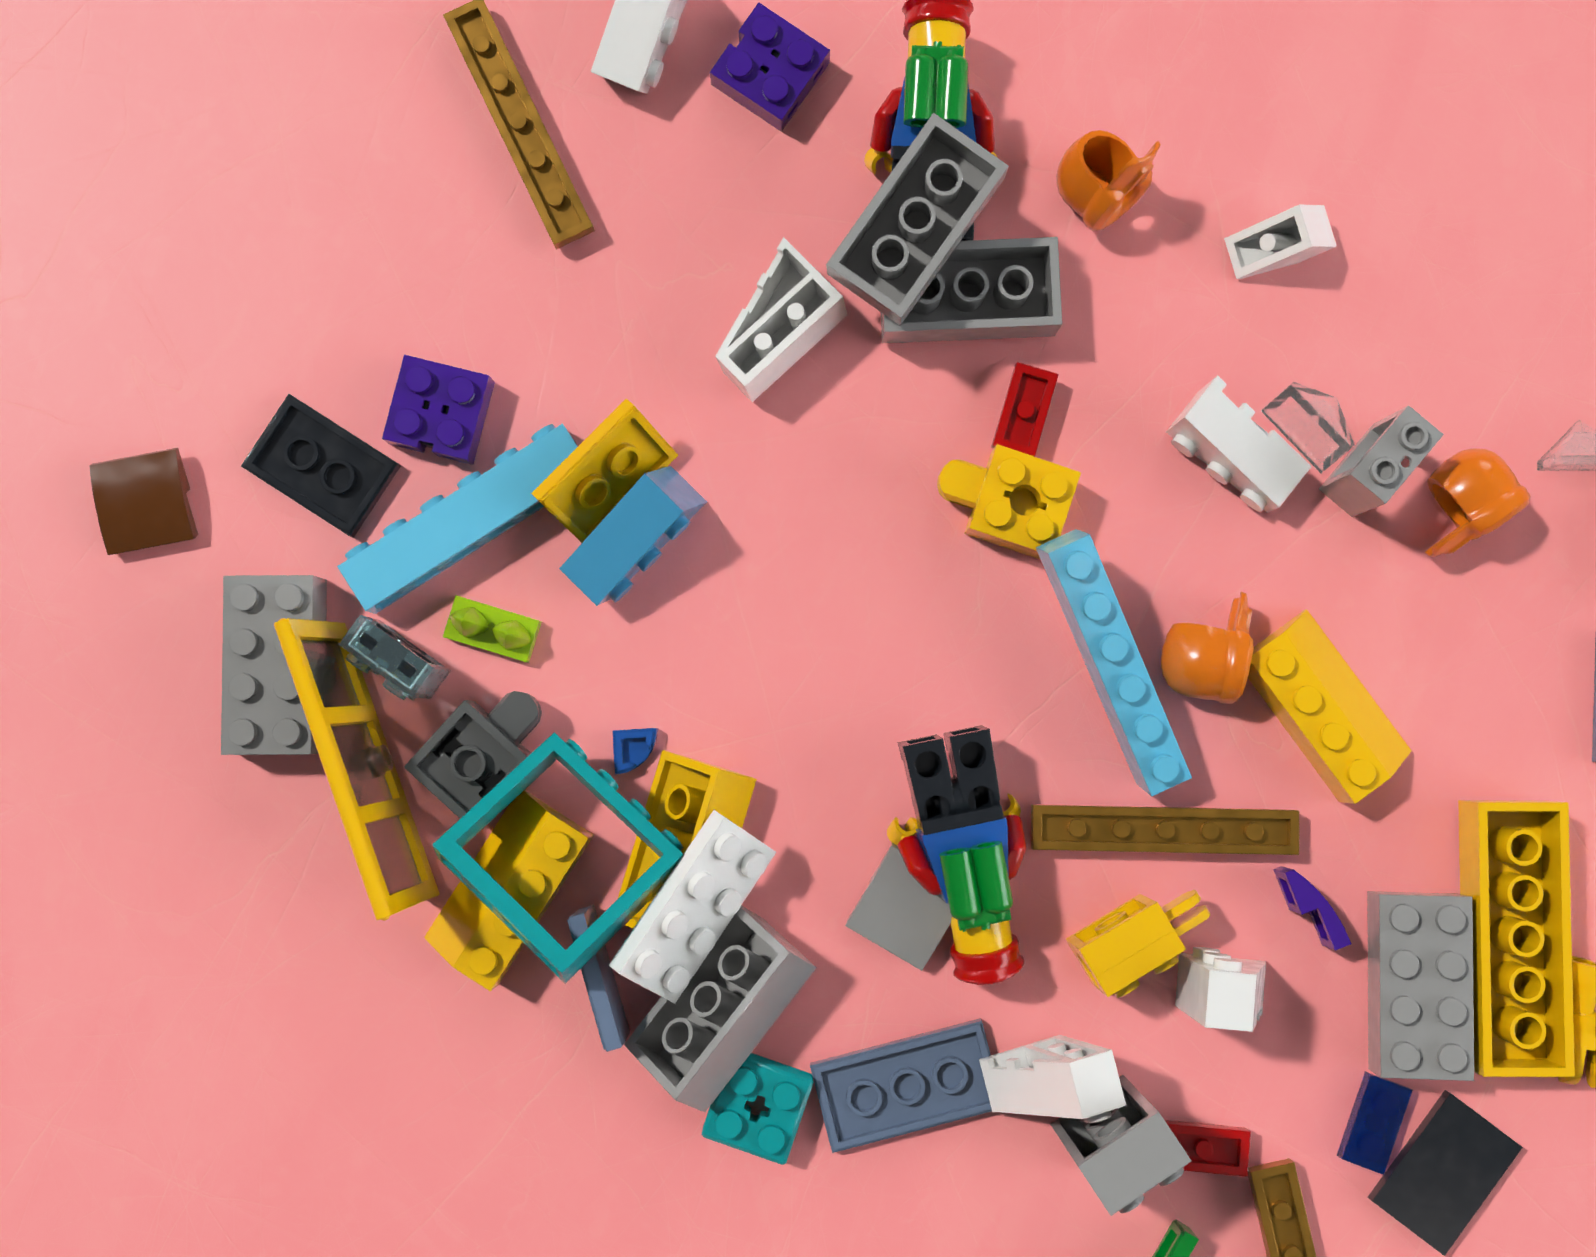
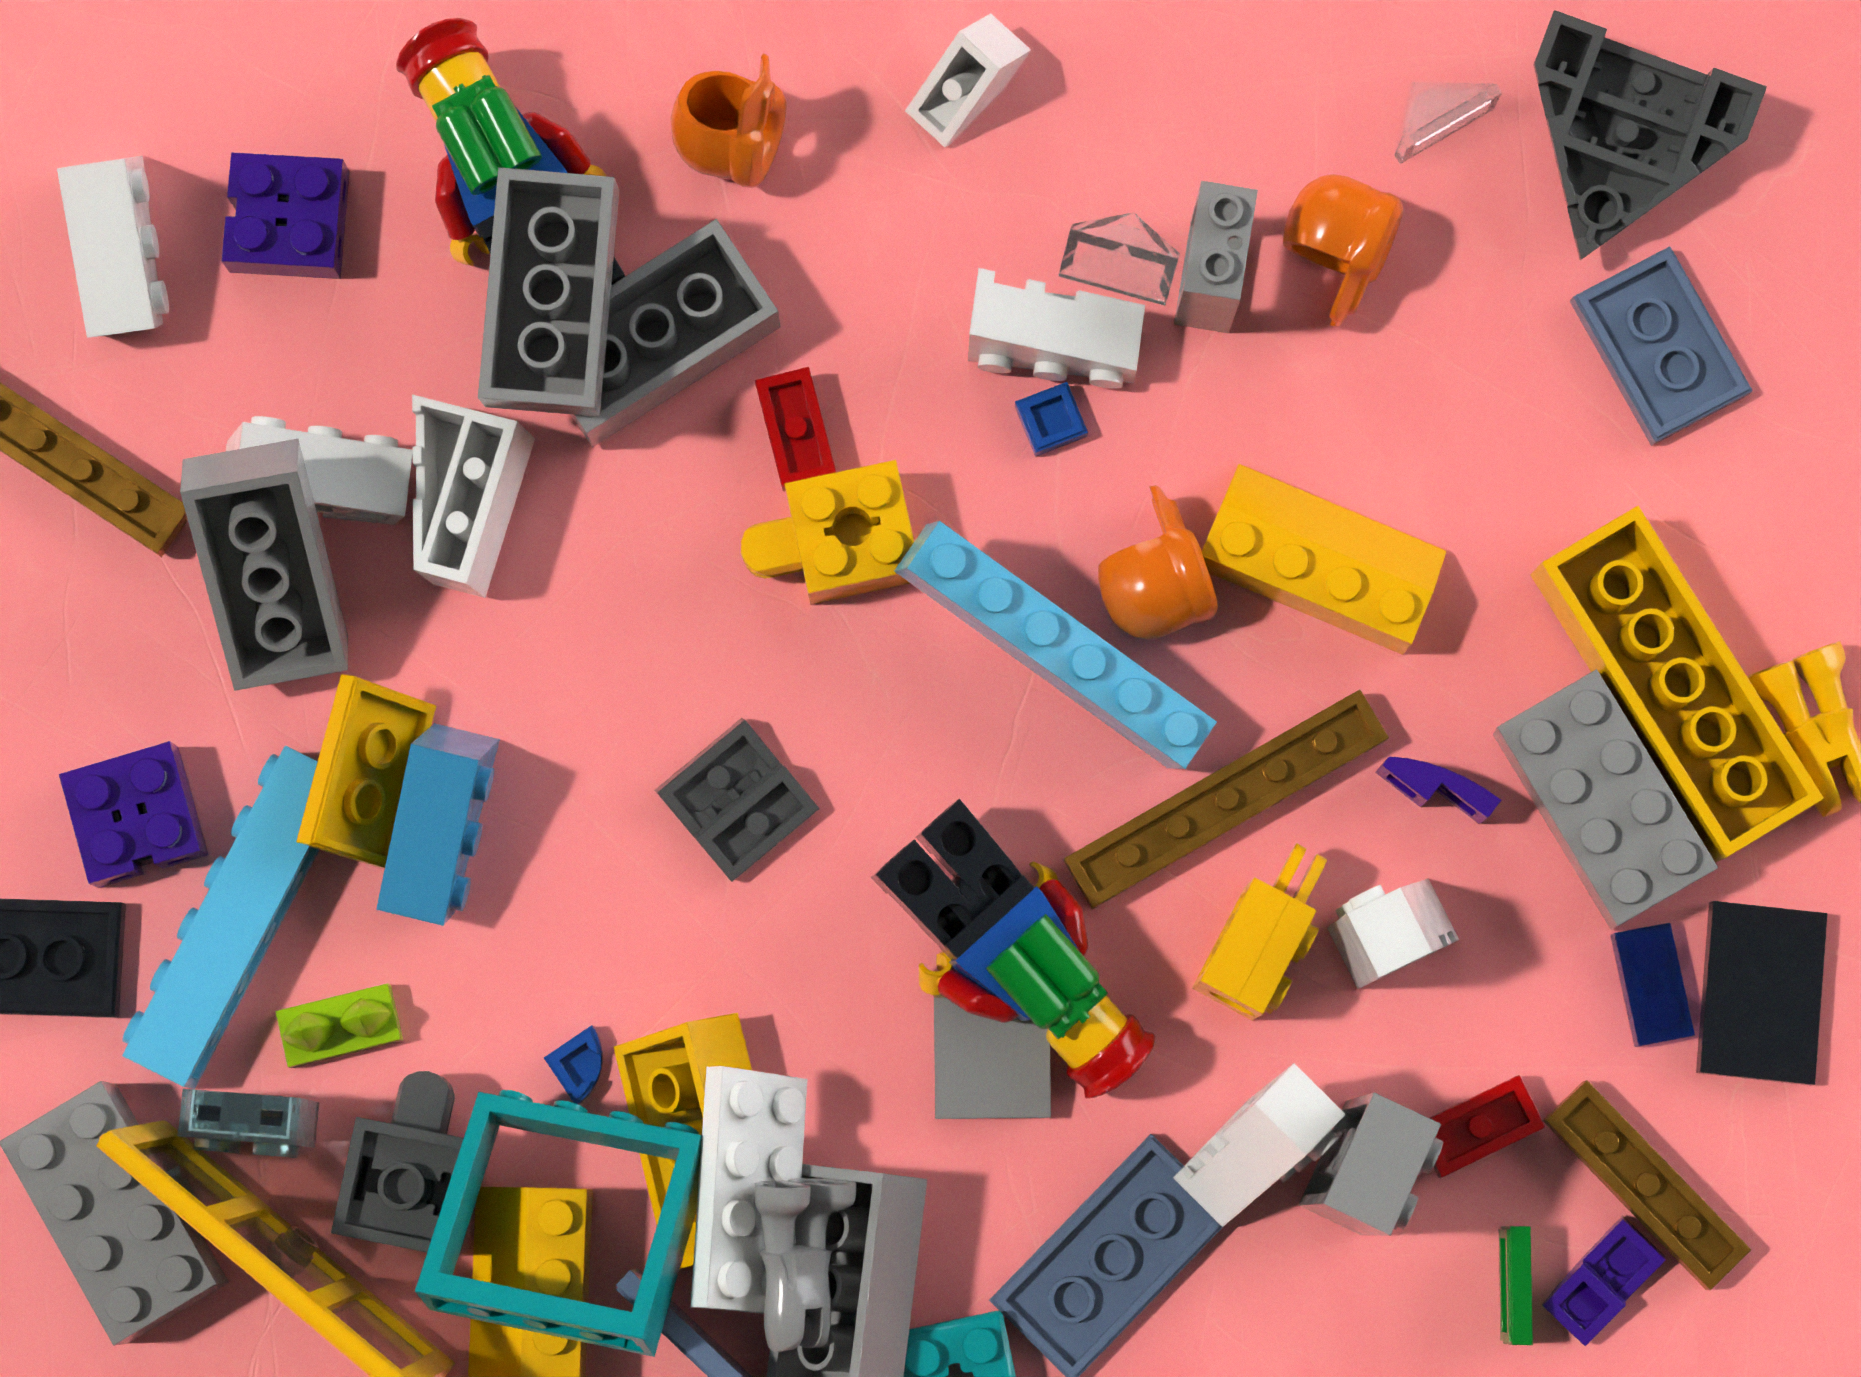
camera: 30 degrees left, 5 degrees down
(618, 292) = (265, 564): none -> light grey brick
(690, 252) = (345, 475): none -> white wedge
(694, 981) = (797, 1274): none -> light grey piece
(839, 635) = (737, 799): none -> dark grey slope
(1198, 504) = (1051, 419): none -> blue tile

